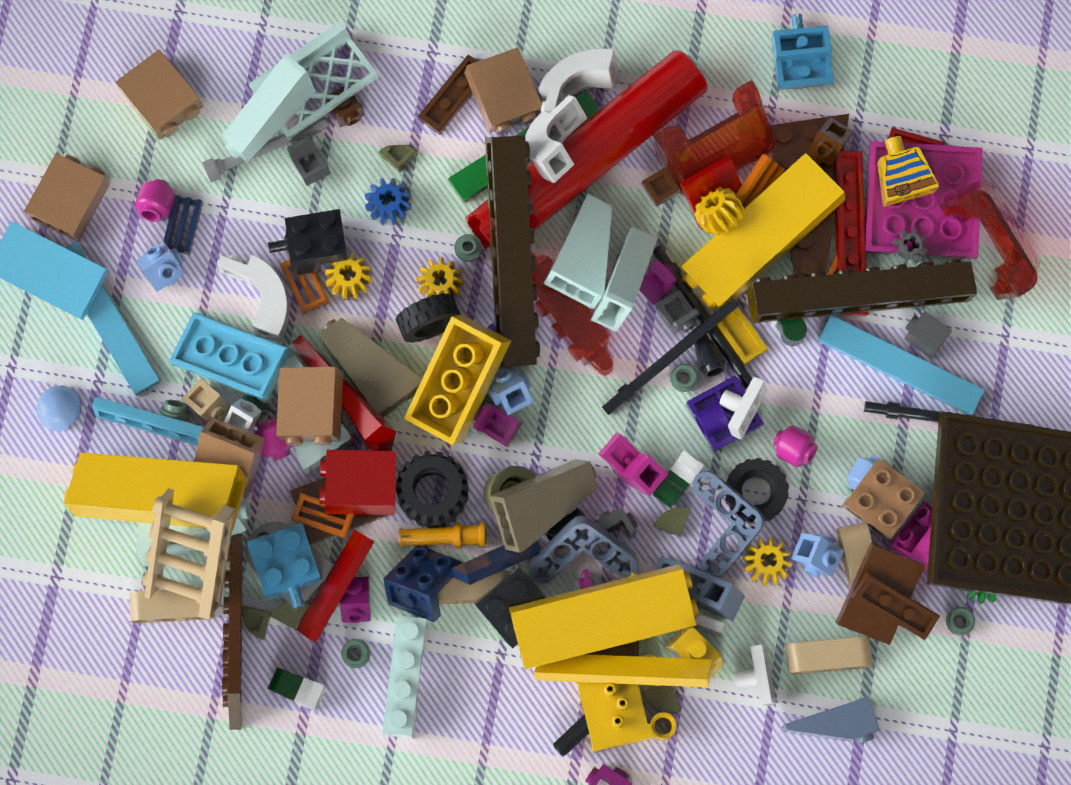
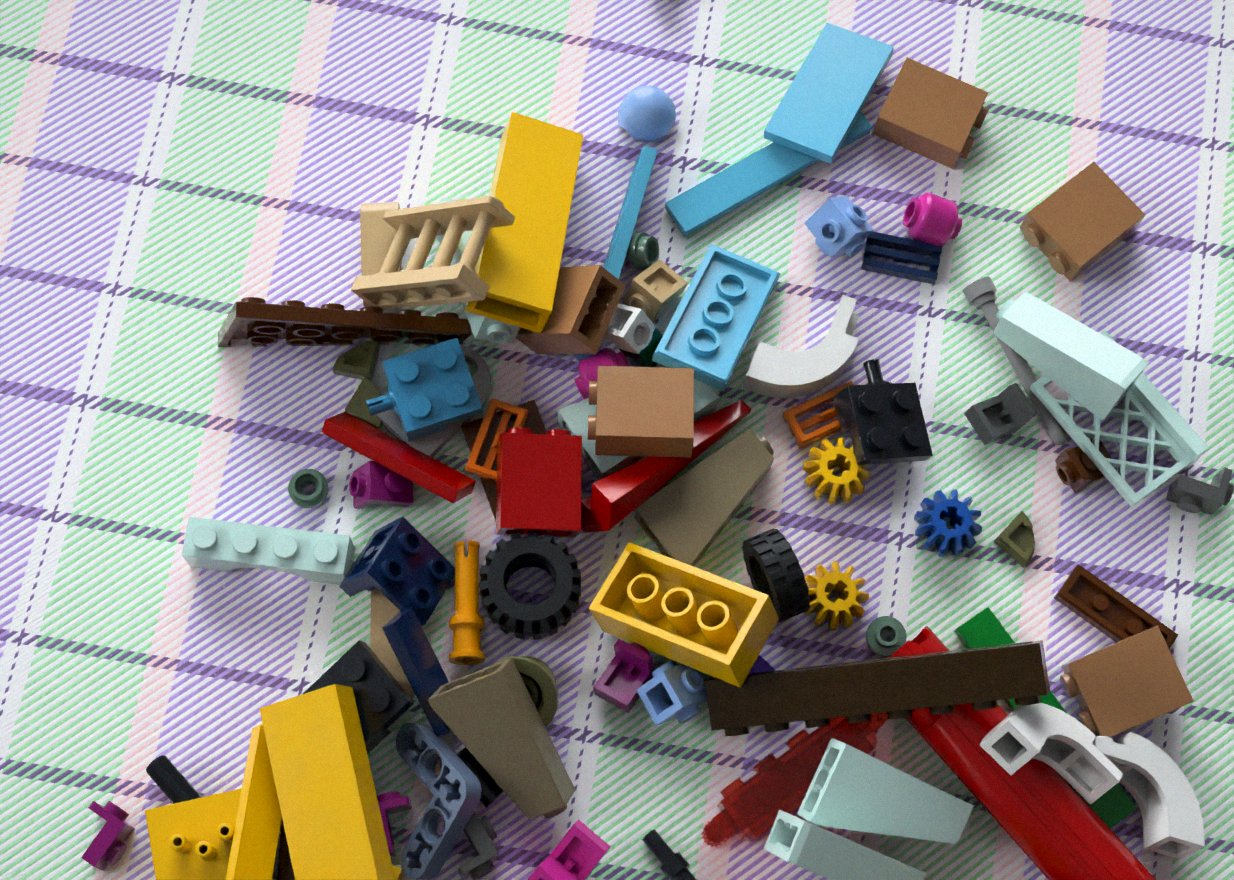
camera: 85 degrees right, 5 degrees down
(297, 689) = (262, 413): leg -> none
(370, 34) = (1199, 496): none -> dark grey bracket

